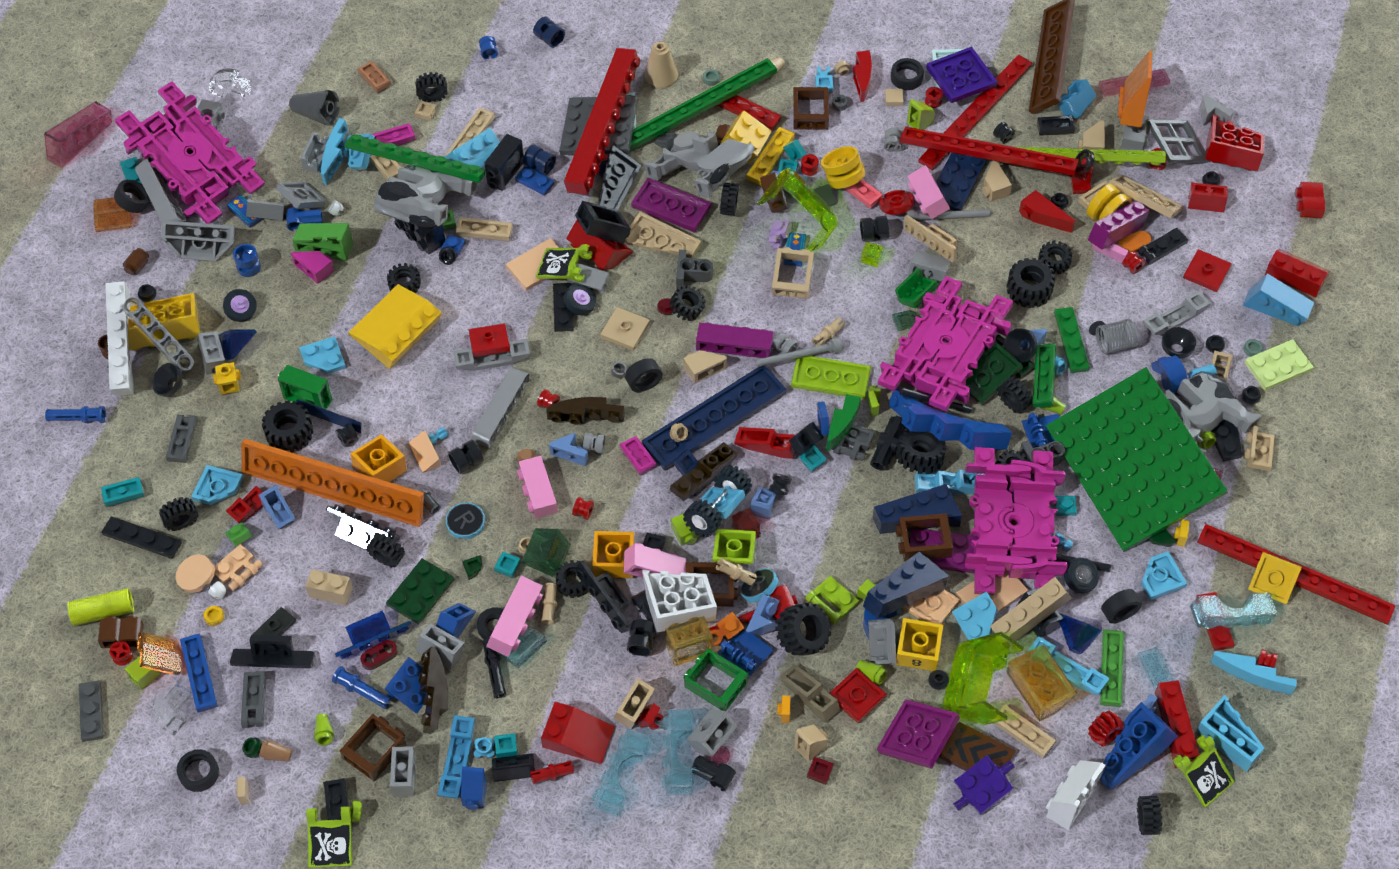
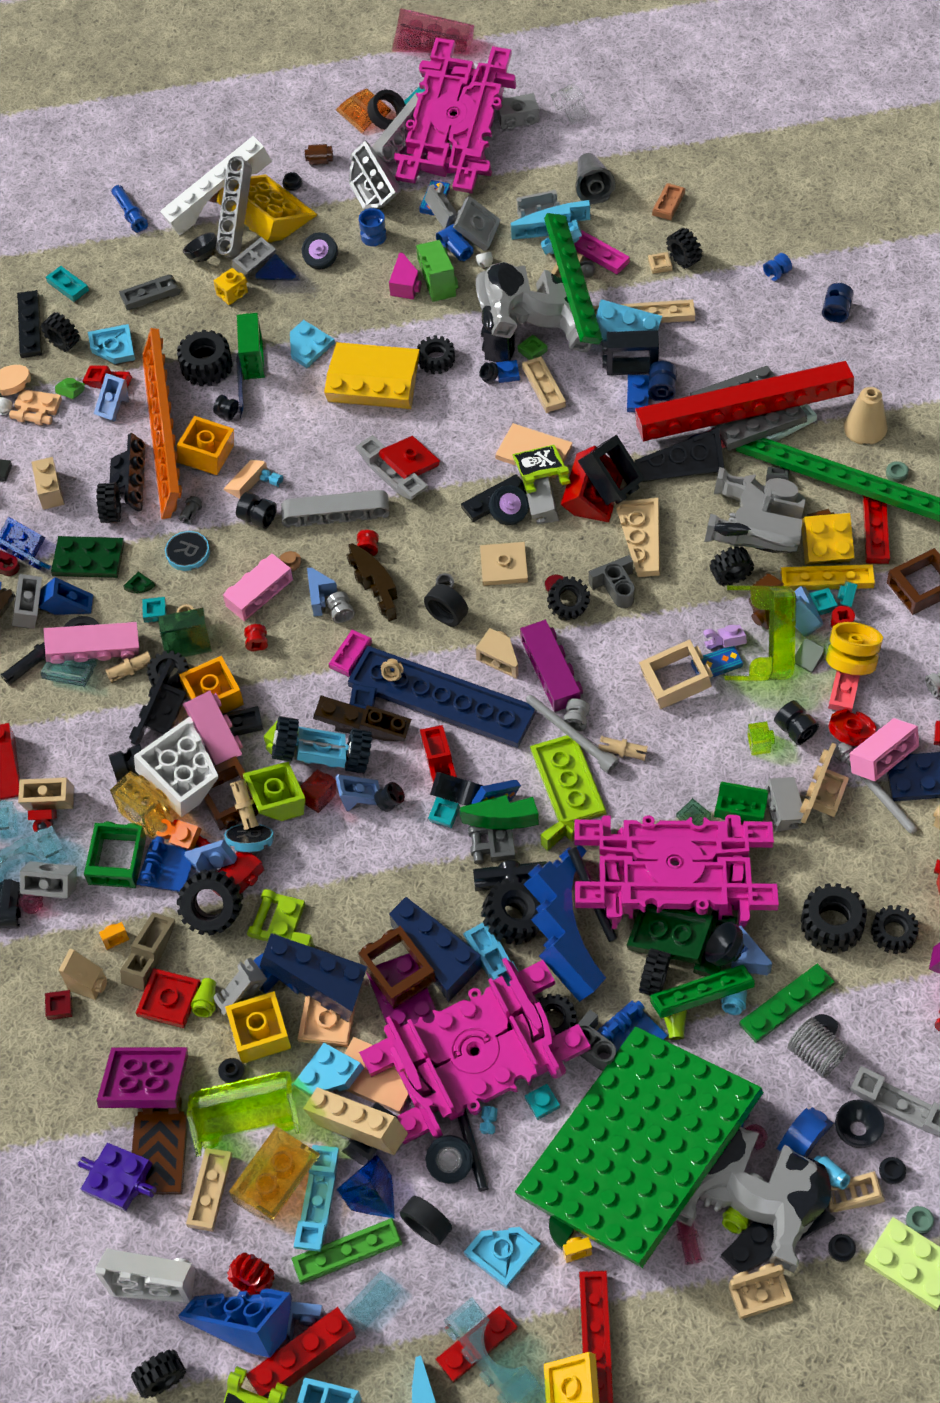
camera: 65 degrees right, 0 degrees up
(671, 205) = (688, 518): magenta plate -> none

